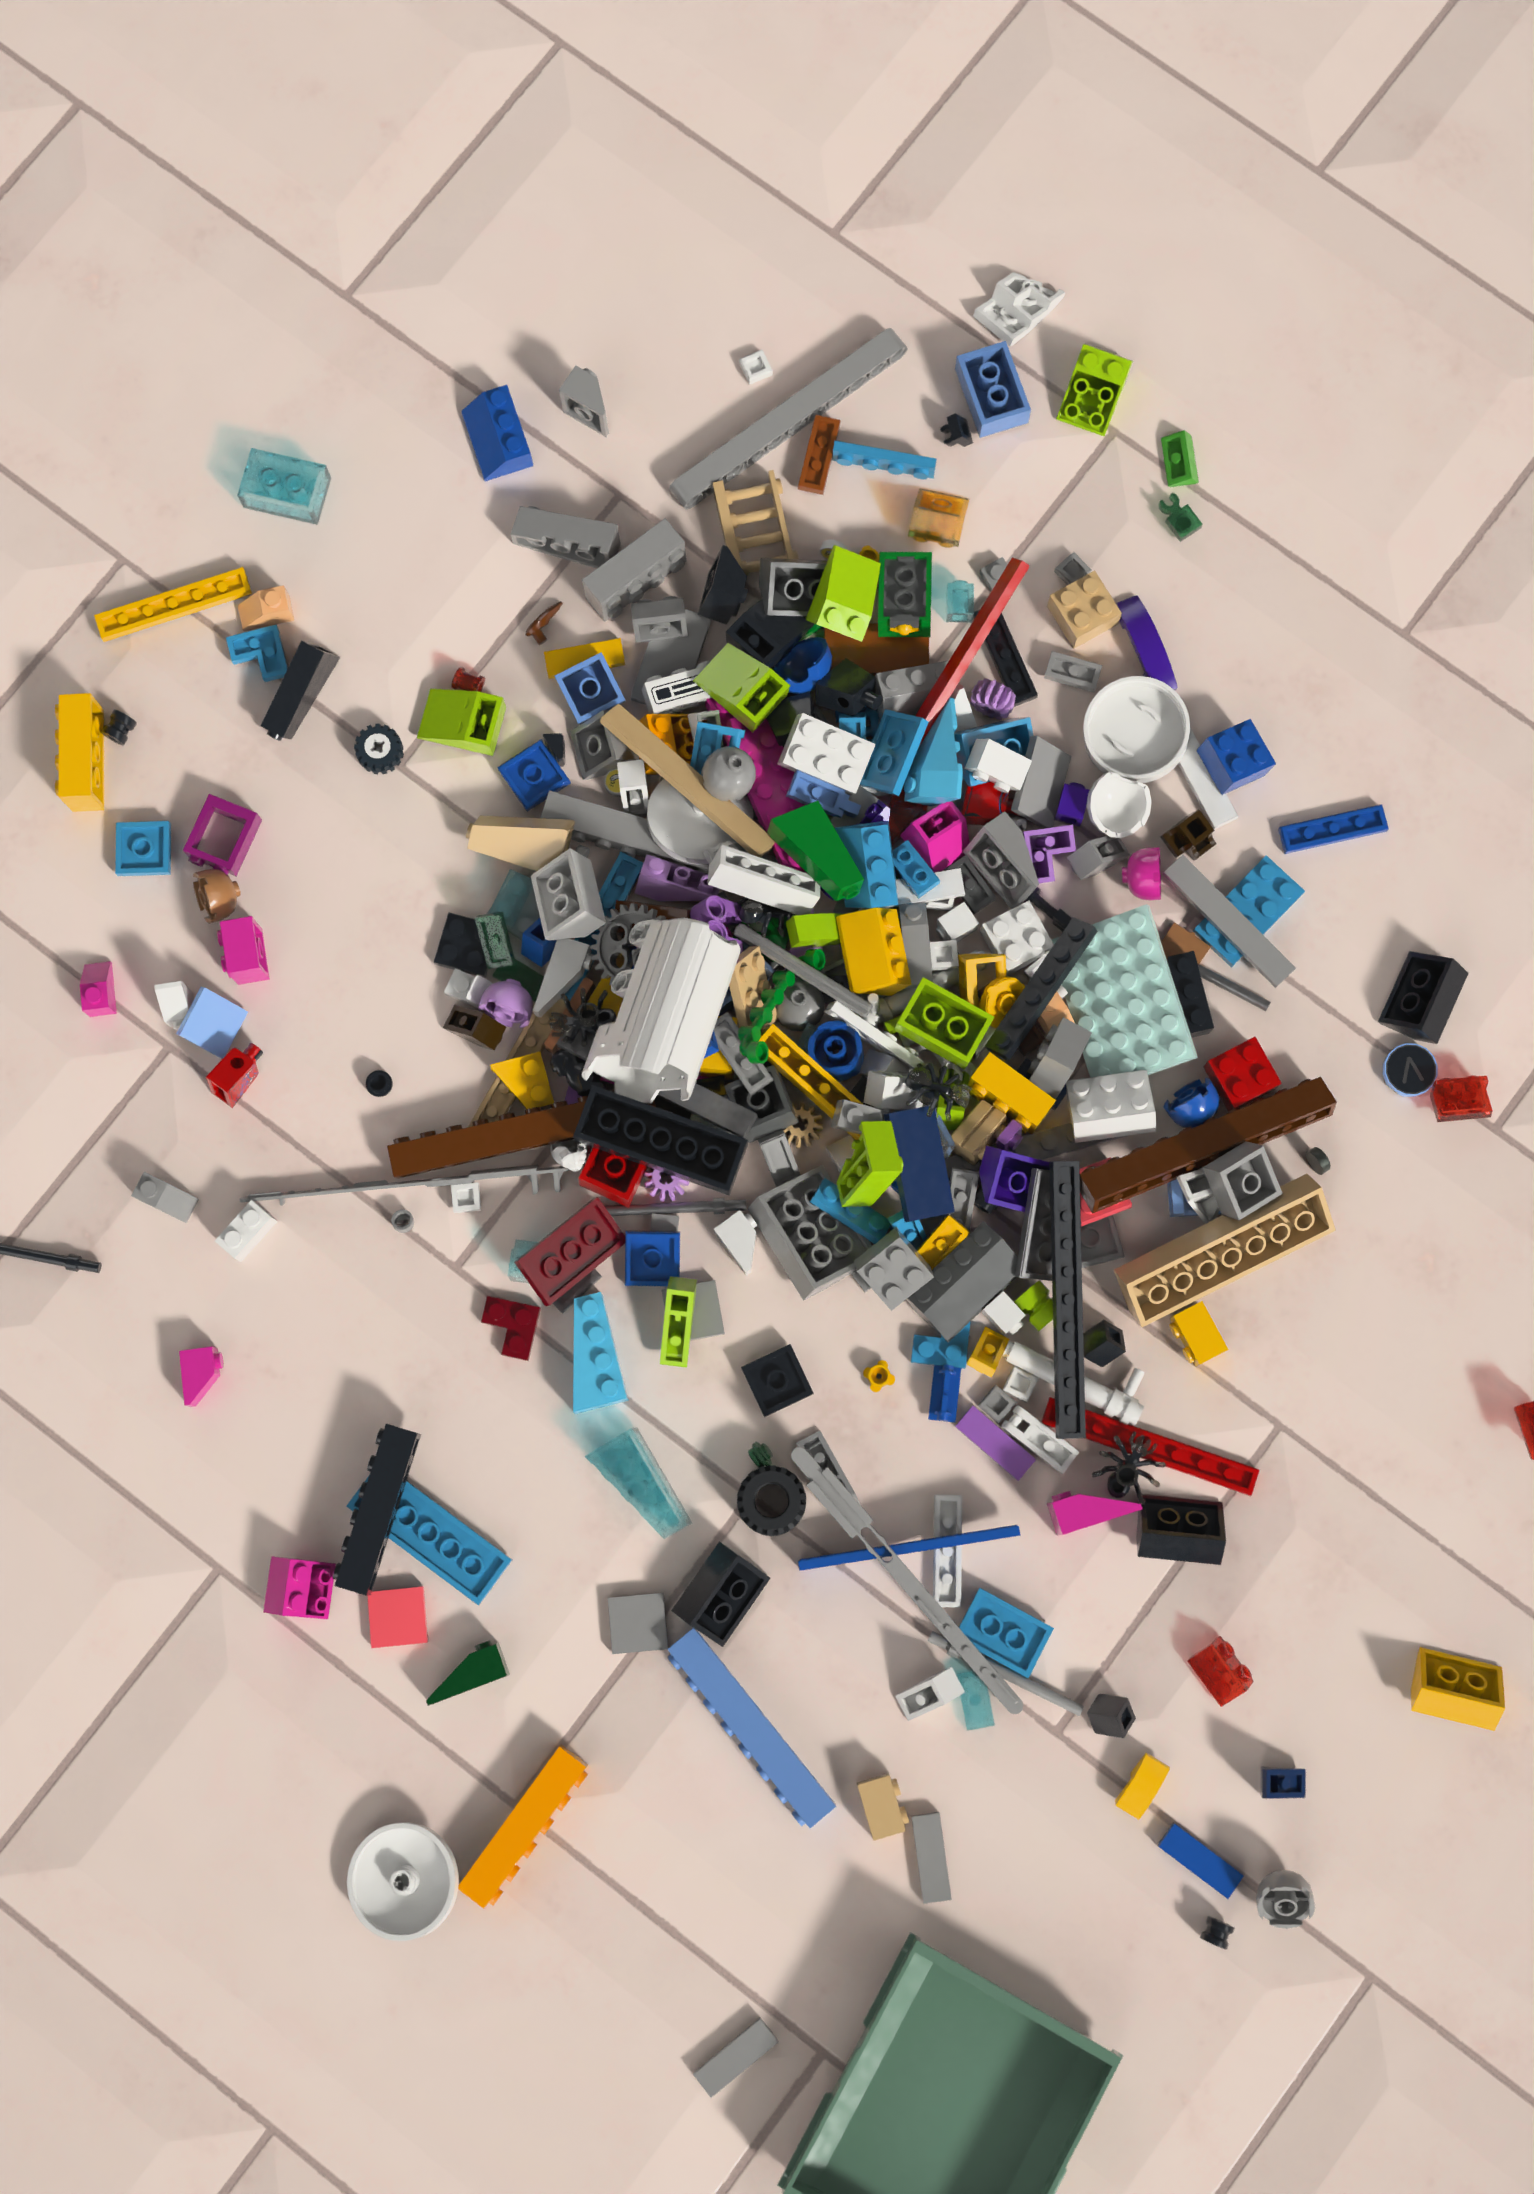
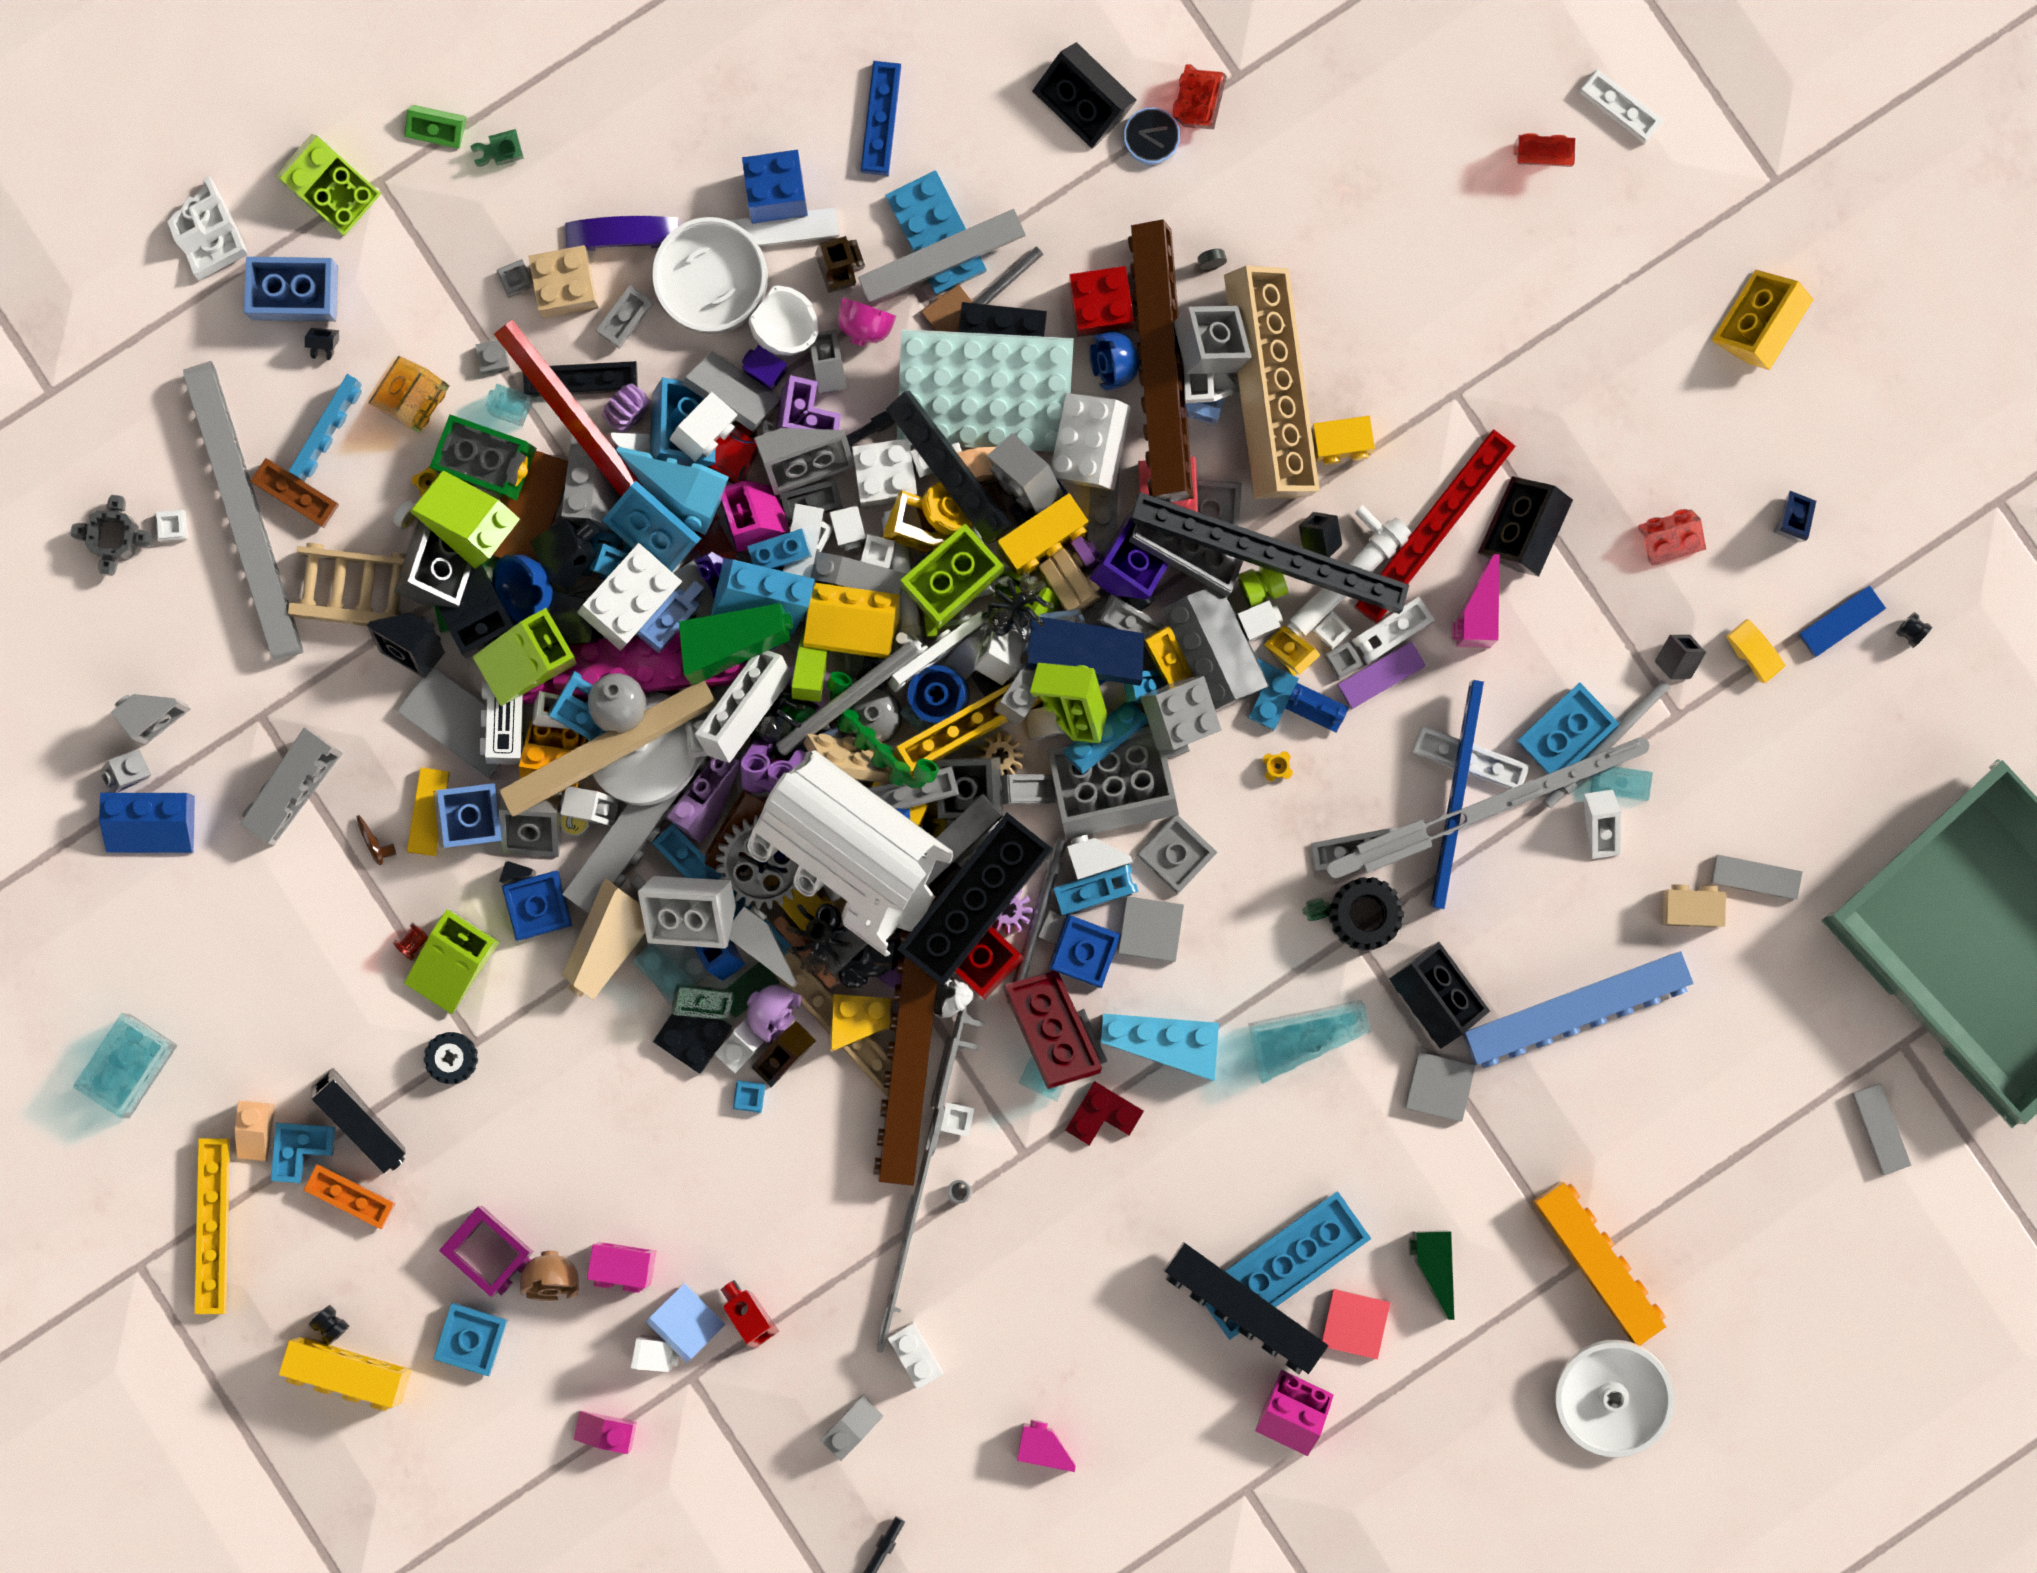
camera: 75 degrees left, 5 degrees up
(233, 707) = (349, 1196): none -> orange plate
(379, 1083) = (807, 1171): black plate -> none
(428, 1011) = (749, 1096): none -> dark azure tile
(534, 401) = (125, 771): none -> light grey bracket
(635, 570) = (355, 726): light grey brick -> none
(659, 619) = (417, 718): light grey slope -> none
(678, 1321) = (1158, 945): lime slope -> none
(710, 1249) = (1094, 890): none -> dark azure plate
(725, 304) = (132, 535): none -> dark grey piece
(768, 1312) = (1176, 853): none -> light grey tile
(777, 1380) = (1248, 868): black plate -> none
(1126, 1470) = (1454, 557): animal -> none
(1285, 1899) = (1904, 554): light grey cylinder -> none

